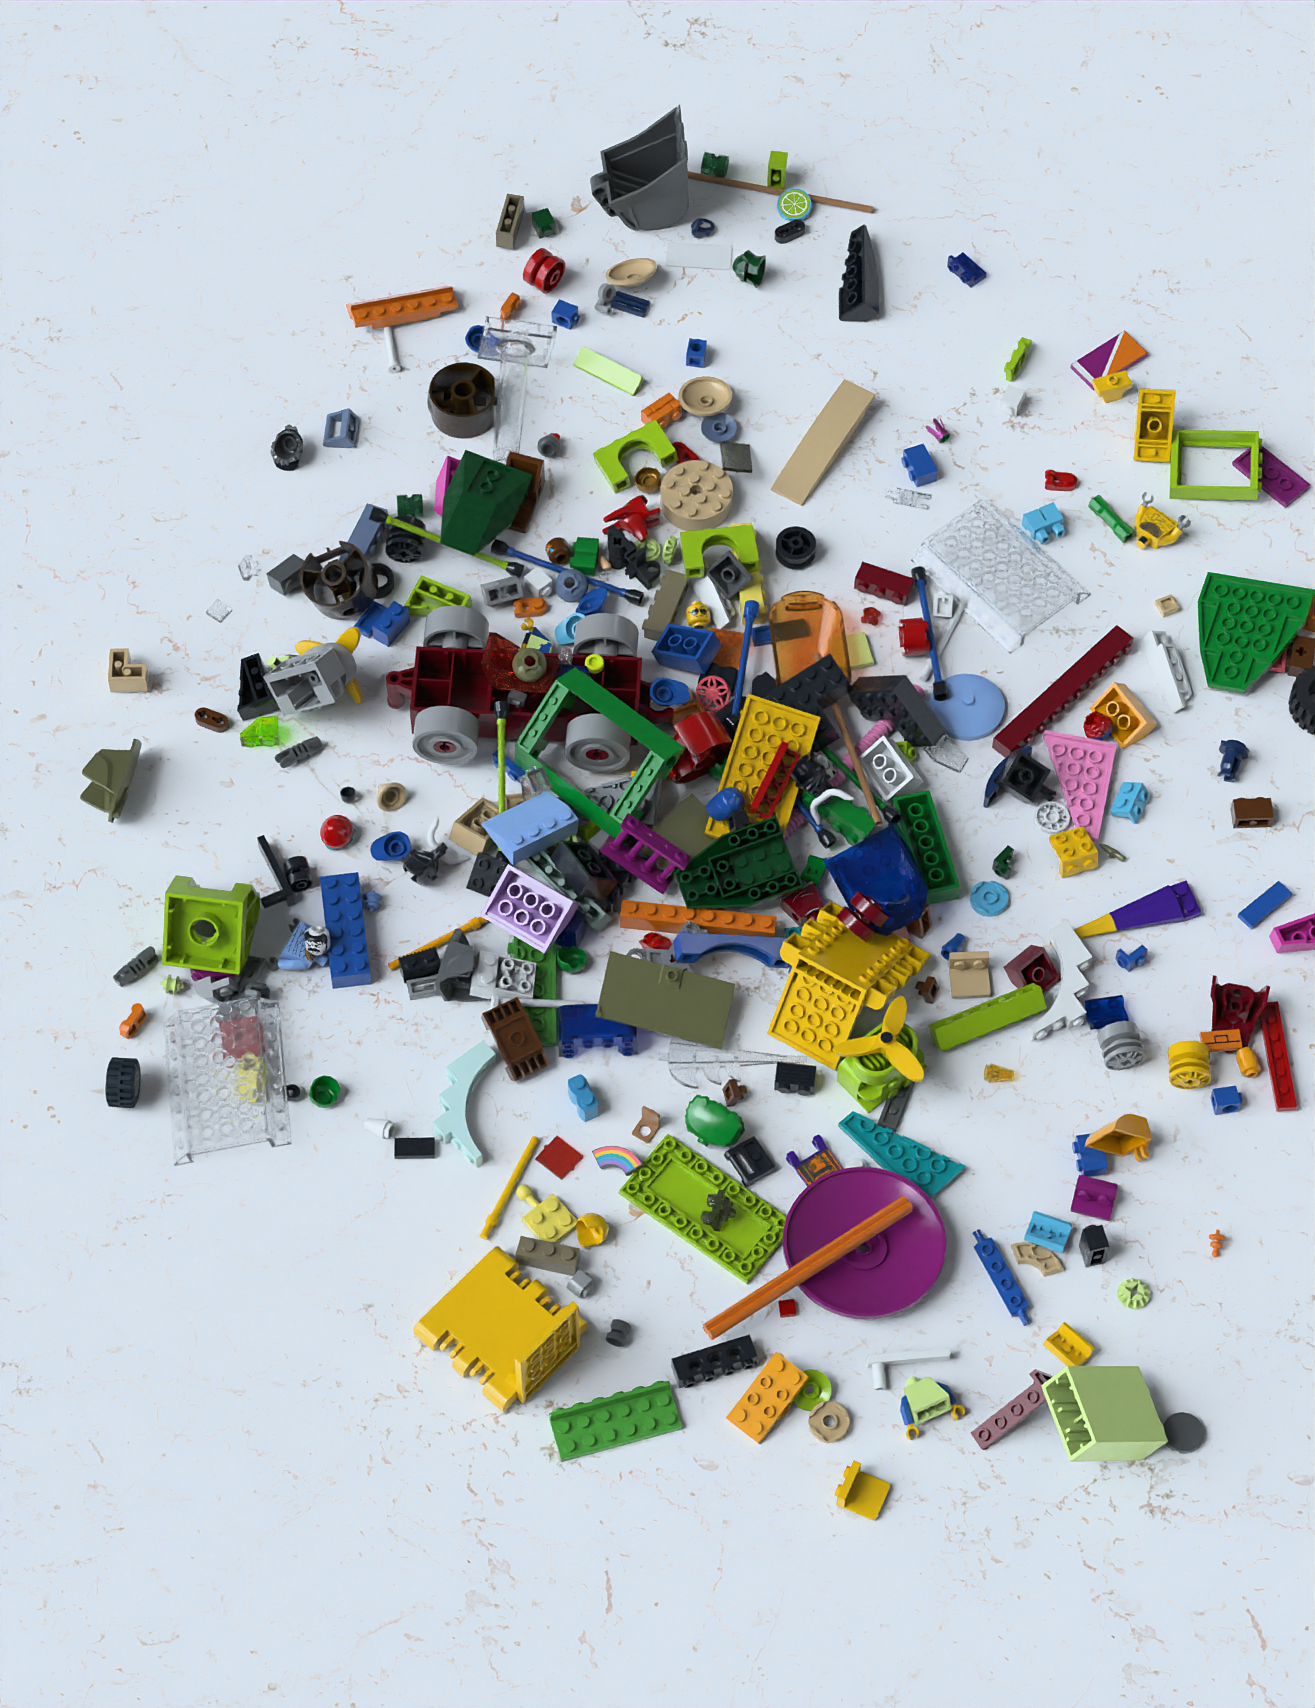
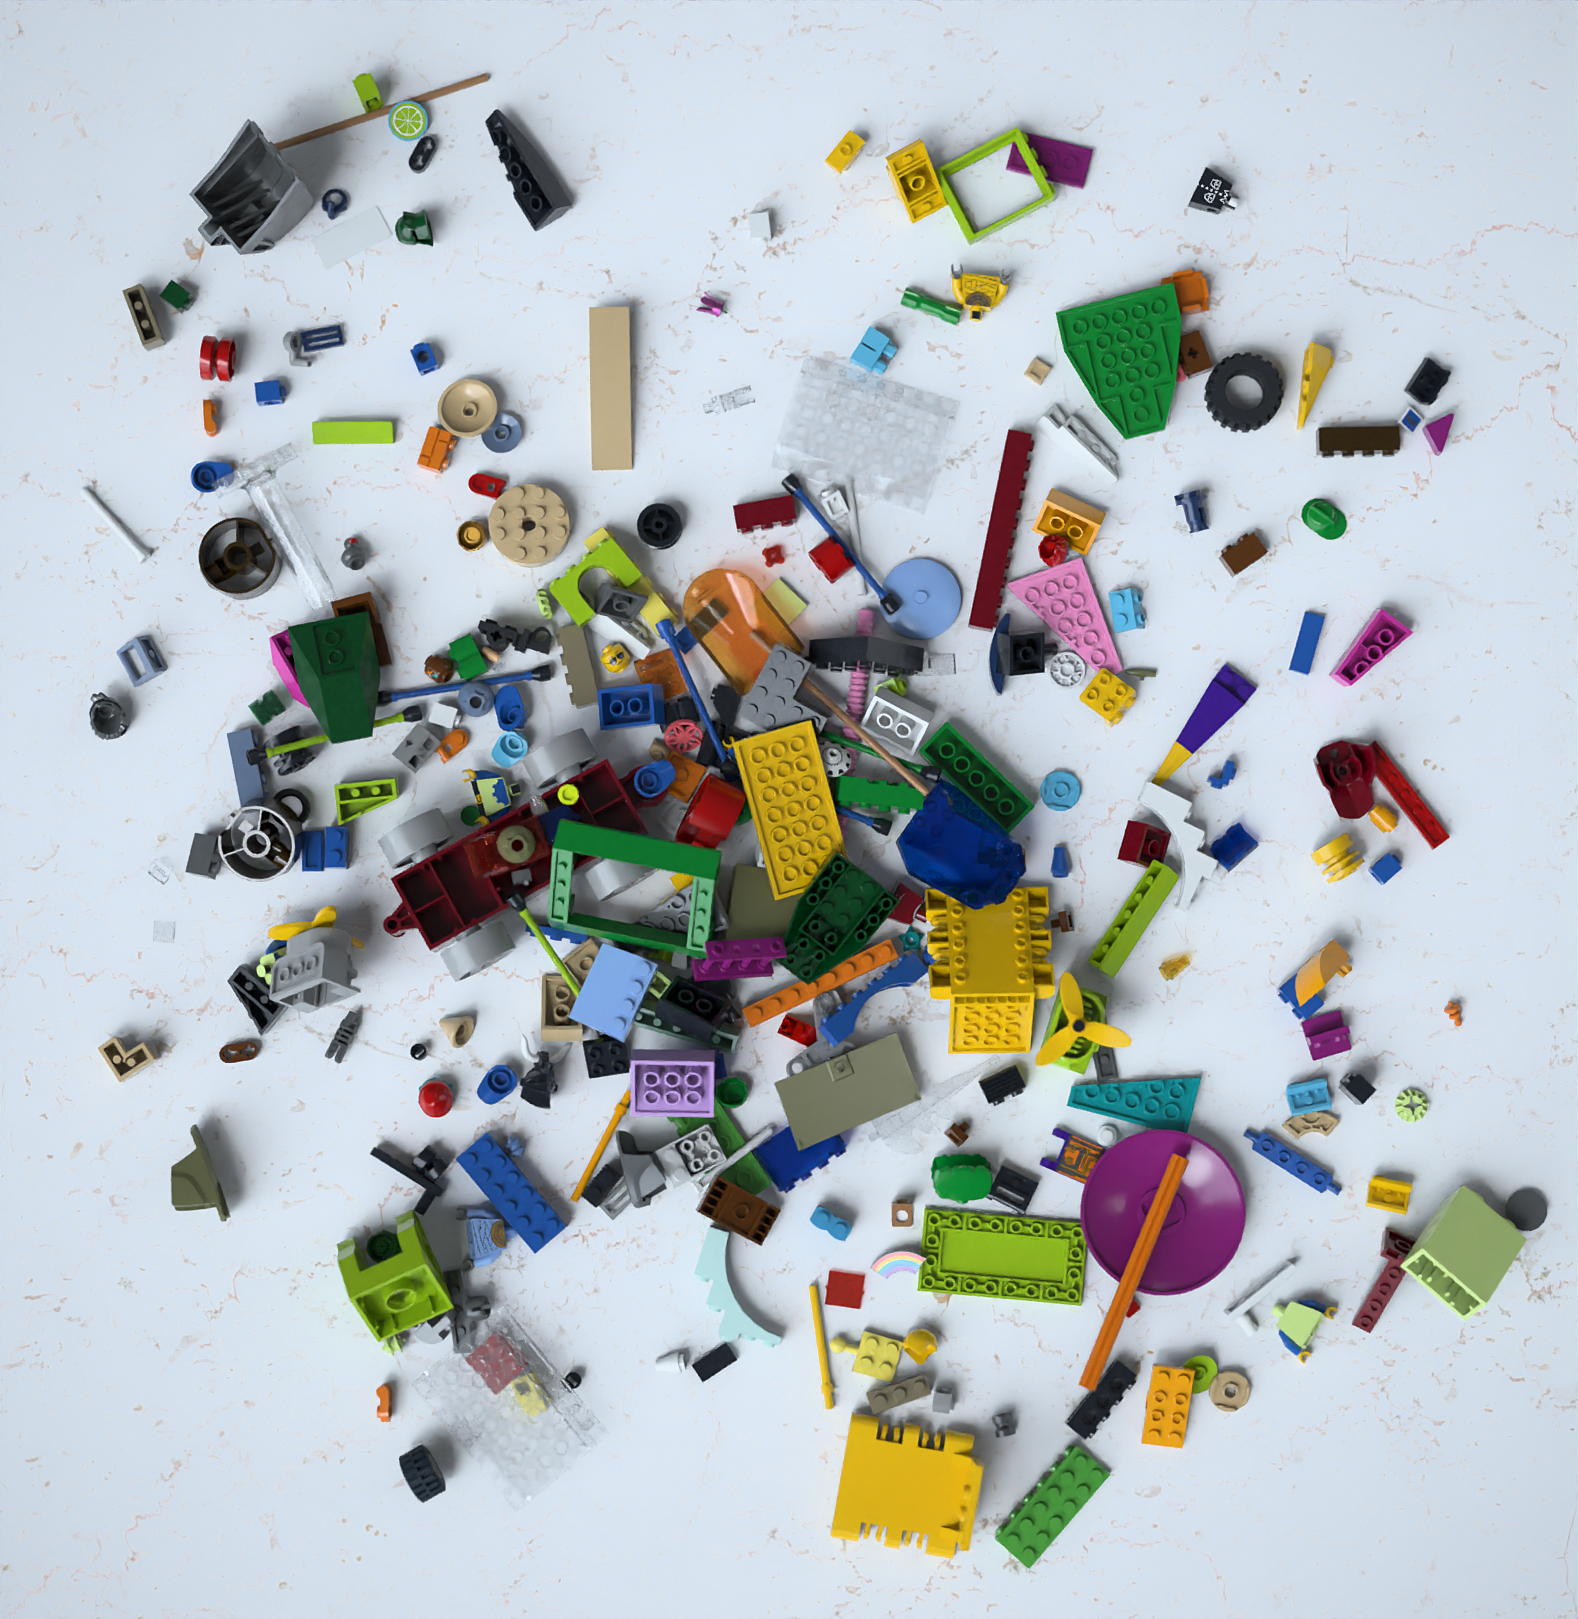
camera: 30 degrees left, 25 degrees up
(136, 966) = (348, 1348): dark grey hinge -> none
(261, 732) = (295, 1037): clear neon green slope -> none
(317, 939) = (499, 1229): head -> none
(324, 1091) = (602, 1363): green hair -> none
(402, 308) = (105, 484): orange slope -> none
(534, 782) = (590, 945): clear slope -> none
(631, 272) = (302, 305): tan dish -> none
(634, 518) = (489, 591): red piece -> none
(647, 437) = (420, 534): lime arch -> none
(652, 546) = (521, 605): yellowish green gear -> none
(713, 164) = (300, 121): clear green wheel -> none
(721, 1210) = (1020, 1266): clear smoke hips -> none
(725, 802) = (778, 861): blue piece -> none
(736, 457) = (540, 460): clear smoke piece -> none
(739, 819) = (802, 871): black piece -> none
(770, 776) = (804, 813): red fence -> none
(814, 780) = (843, 789): black helmet -> none
(814, 870) = (890, 865): green bracket -> none
(861, 1492) = (1296, 1438): yellow bracket -> none
(866, 912) = (977, 907): dark red wheel -> none
(919, 465) = (717, 358): blue brick -> none
(966, 269) = (621, 94): clear blue bracket -> none
(969, 974) = (1092, 886): tan bracket -> none
(1002, 862) = (1052, 744): dark green bracket -> none
(1017, 358) = (734, 171): lime hinge -> none
(1066, 480) = (864, 288): red plate -> none
(1109, 358) = (821, 119): tile -> none
(1121, 1045) = (1268, 876): light grey wheel -> none
(1222, 1040) = (1349, 814): orange tile -> none

